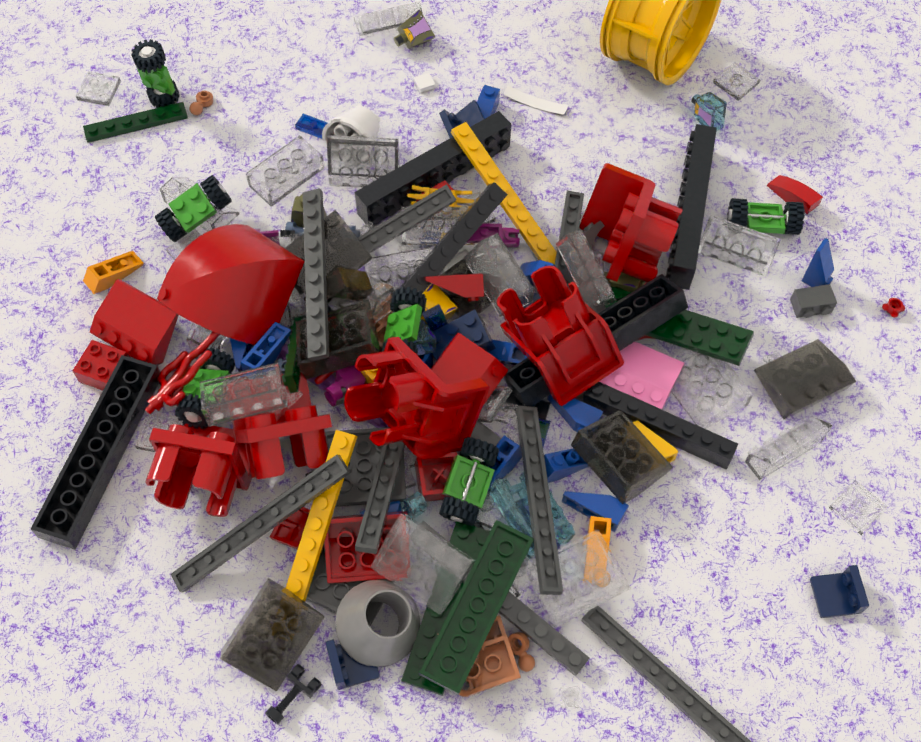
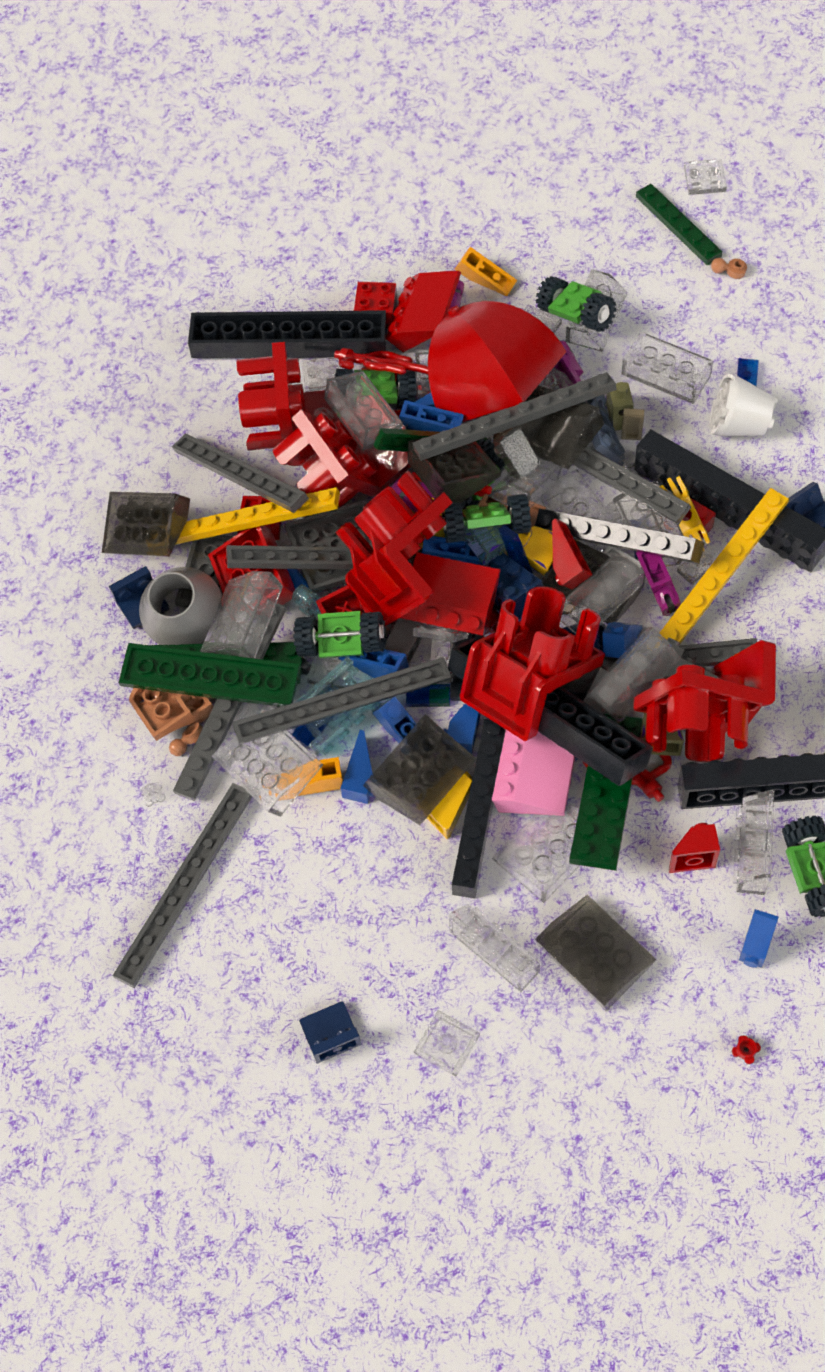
camera: 80 degrees right, 0 degrees up
(149, 60) = (728, 187): plate -> none
(275, 713) = (78, 557): black bar -> none
(333, 203) = (632, 424): none -> dark tan tile
(360, 159) = (701, 424): clear slope -> none
(735, 284) = (696, 850): none -> red slope
(813, 301) = (713, 947): dark grey brick -> none

